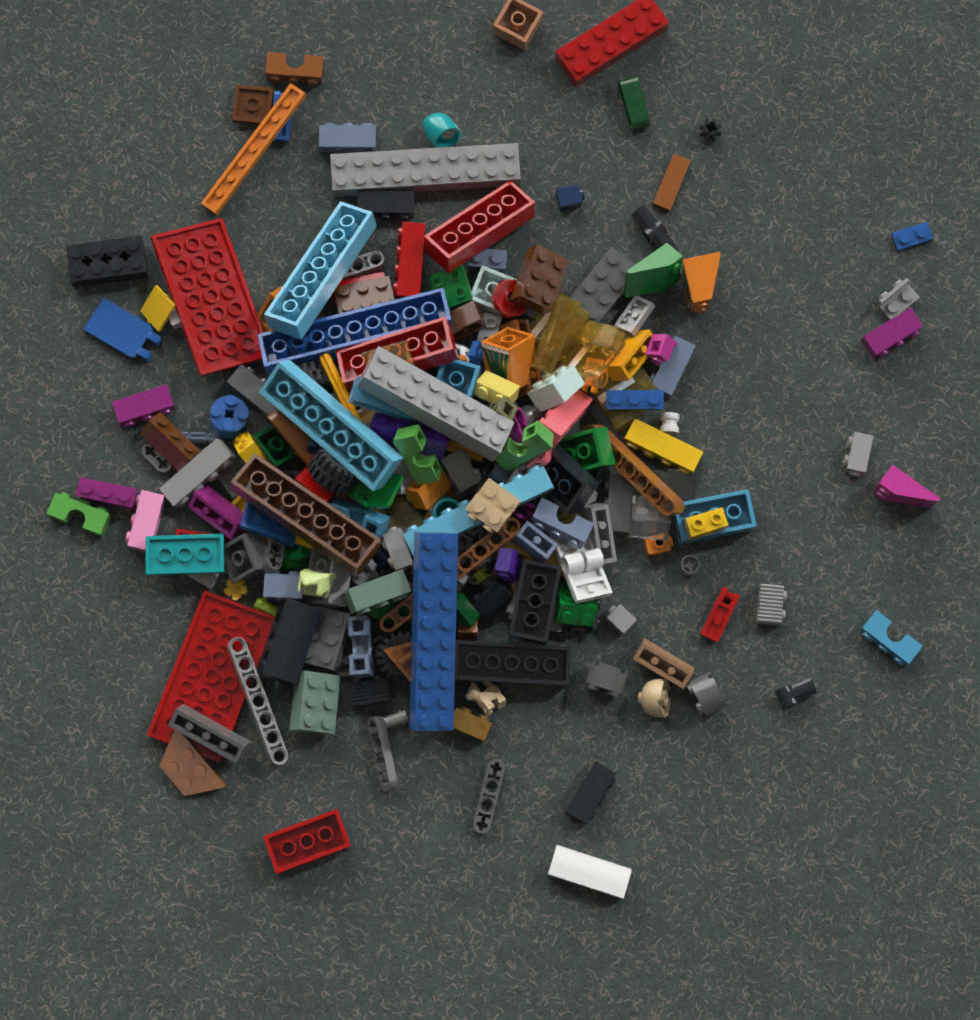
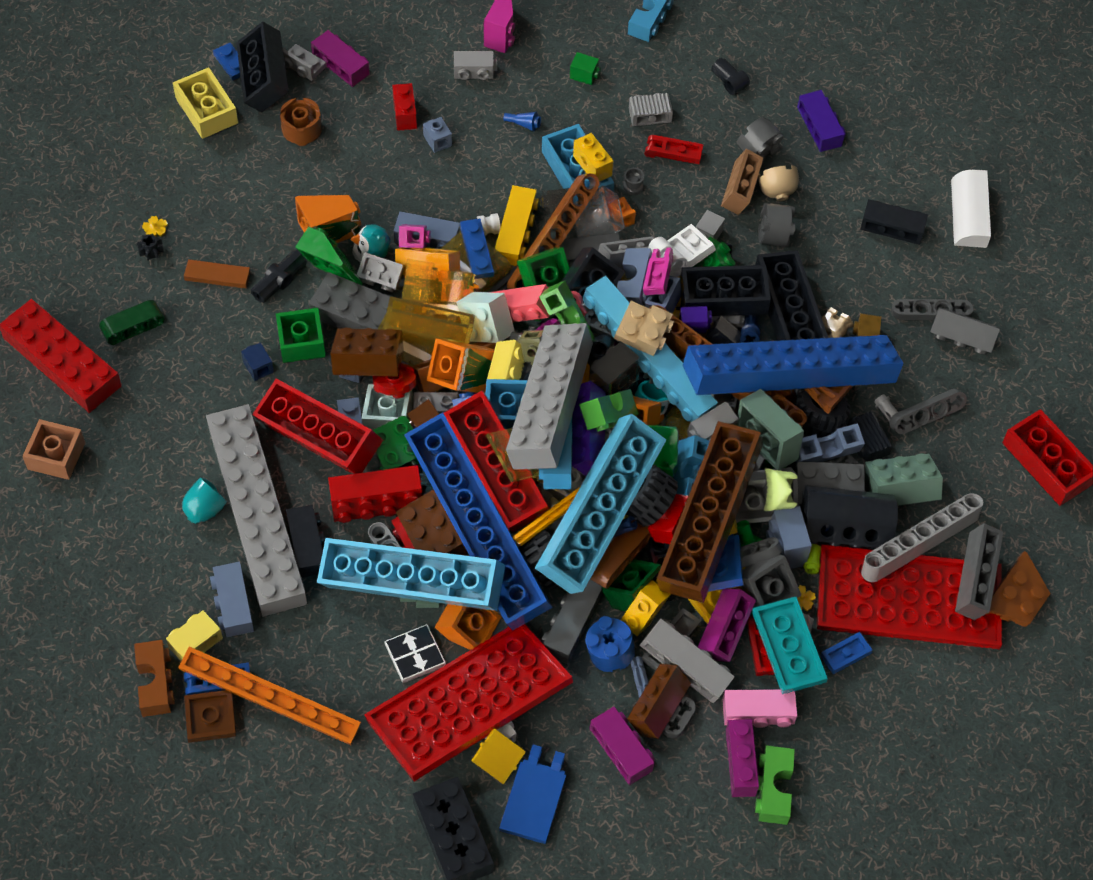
camera: 100 degrees left, 20 degrees down
(175, 607) = (846, 653): none -> blue plate
(266, 268) = (415, 653): none -> black tile
(321, 103) = (198, 632): none -> light yellow brick
(455, 814) = (964, 330): none -> dark grey brick
(490, 615) = (750, 331): none -> dark blue pin
(555, 539) = (658, 272): none -> dark pink hinge
(584, 236) = (300, 335): none -> green brick
(669, 316) = (371, 240): none -> teal piece
(722, 763) = (821, 120): none -> dark purple brick
(735, 139) = (155, 226): none -> yellow plant
(782, 401) = (437, 134): none -> sand blue brick
(782, 489) = (527, 120): none -> blue cone
(817, 272) = (300, 121): none -> dark orange brick
(820, 378) = (404, 106): none -> red brick
(832, 556) = (584, 68): none -> green brick
(859, 201) = (205, 103): none -> light yellow brick
(888, 257) = (262, 67): none -> black brick

